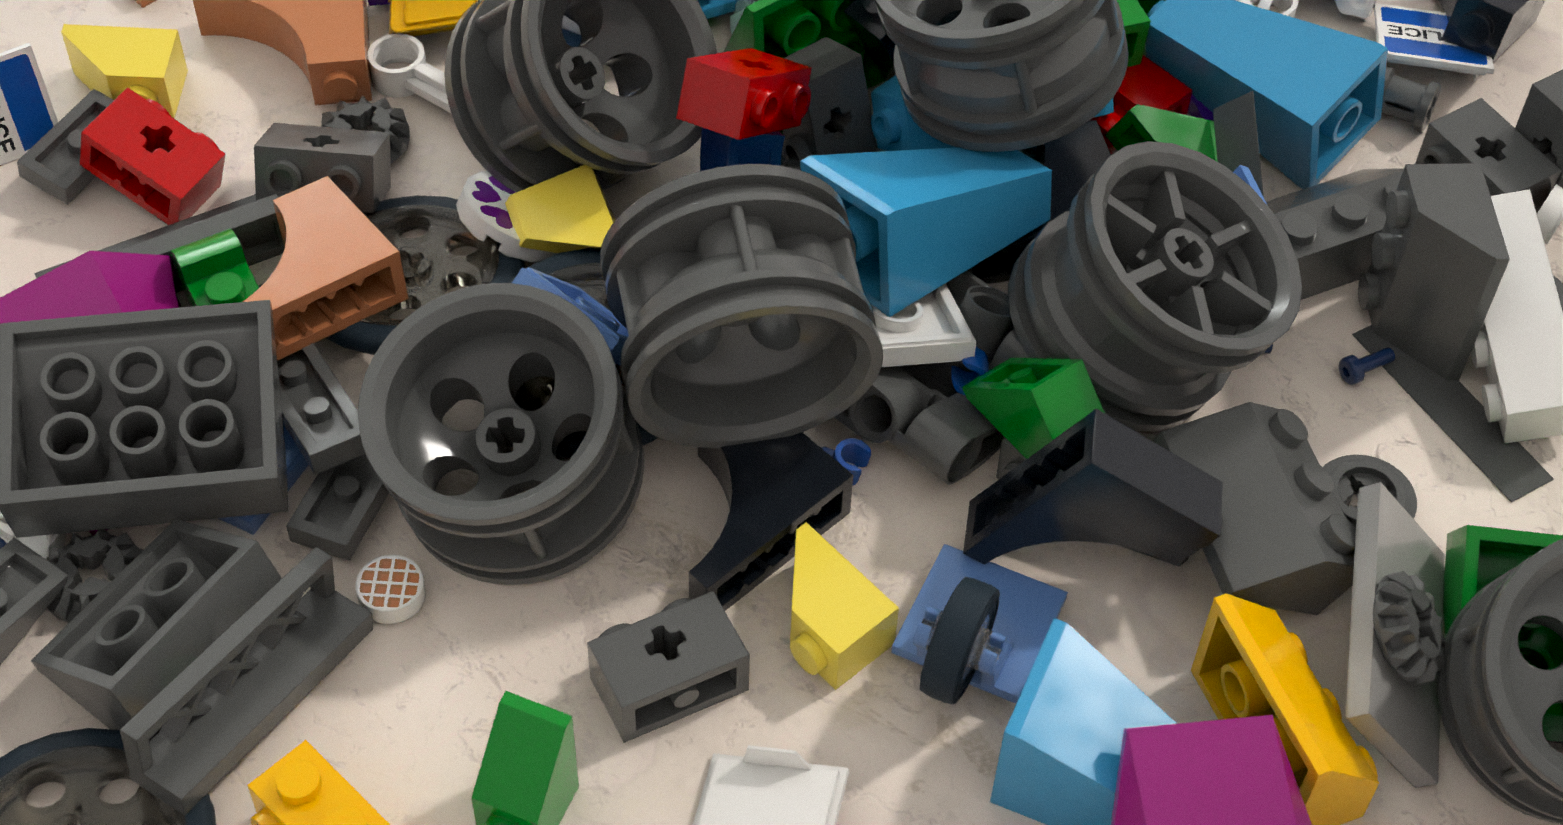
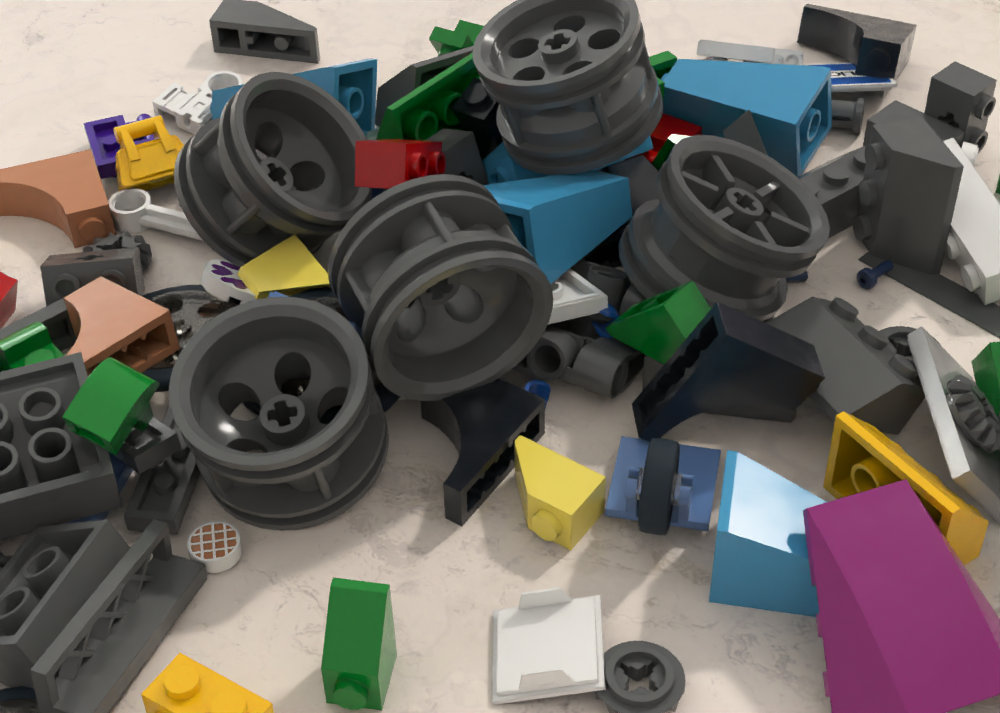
camera: 10 degrees left, 10 degrees down
(289, 388) = (111, 405): none -> green brick
(668, 665) = (443, 554): dark grey brick -> none

